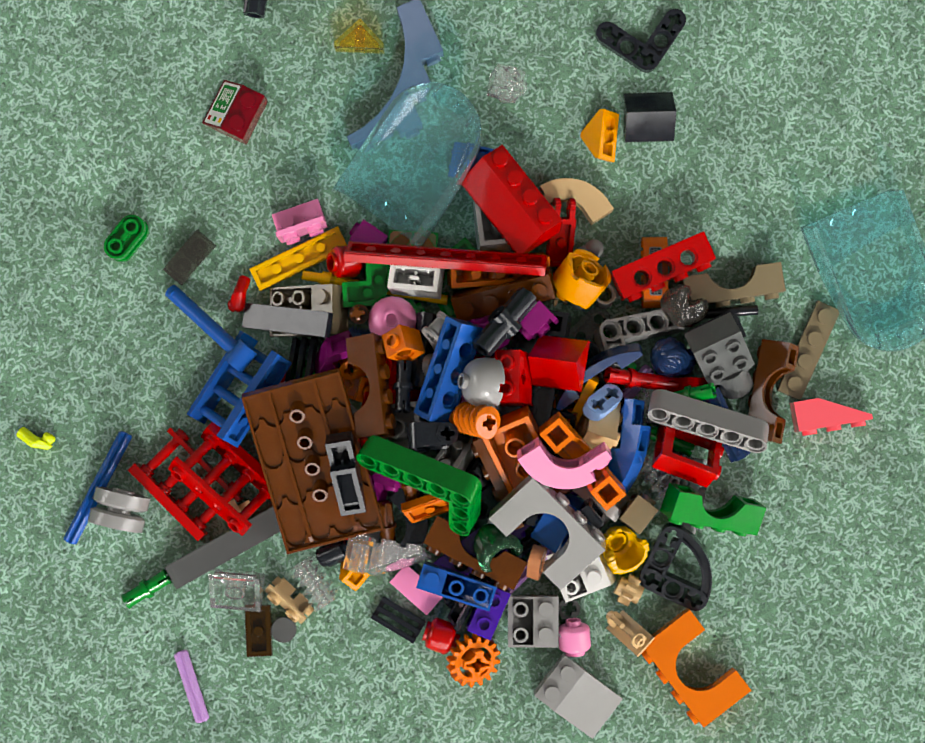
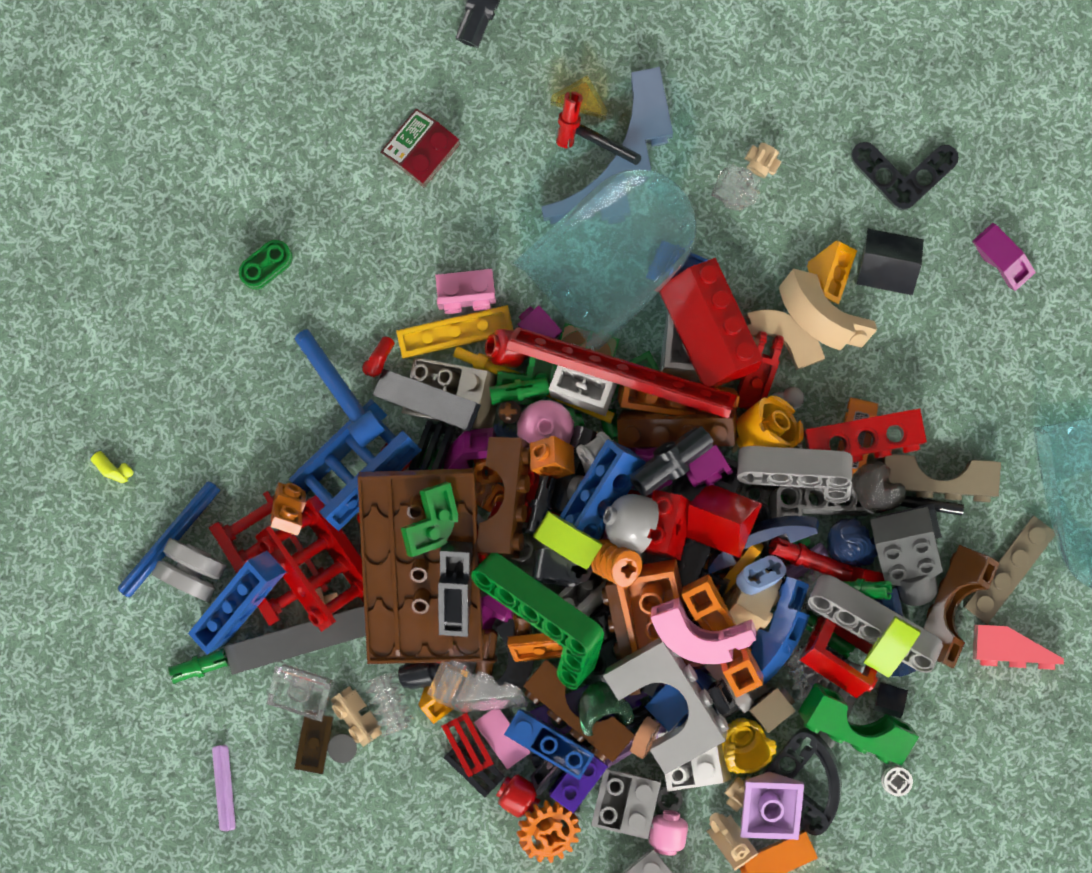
camera: 15 degrees right, 0 degrees up
(164, 527) = (237, 602): none -> blue brick
(189, 257) = (331, 302): clear smoke slope -> none
(190, 438) = (288, 508): none -> orange slope
(318, 423) = (439, 521): none -> green plate
(353, 58) = (569, 119): none -> red pin
(363, 294) = (519, 390): none -> green pin
(379, 607) = (456, 723): none -> red tile
(388, 71) = (608, 144): none -> black bar
(431, 410) = (567, 540): none -> lime slope
(523, 55) = (763, 160): none -> tan gear
(601, 175) = (820, 318): none -> tan arch
(613, 304) = (798, 469): none -> light grey beam
(657, 596) = (772, 807): none -> lavender slope
(728, 437) = (892, 646): none -> slope
(734, 482) = (890, 700): none -> black tile
(742, 88) = (1005, 255): none -> magenta slope
(752, 546) = (897, 781): none -> white wheel

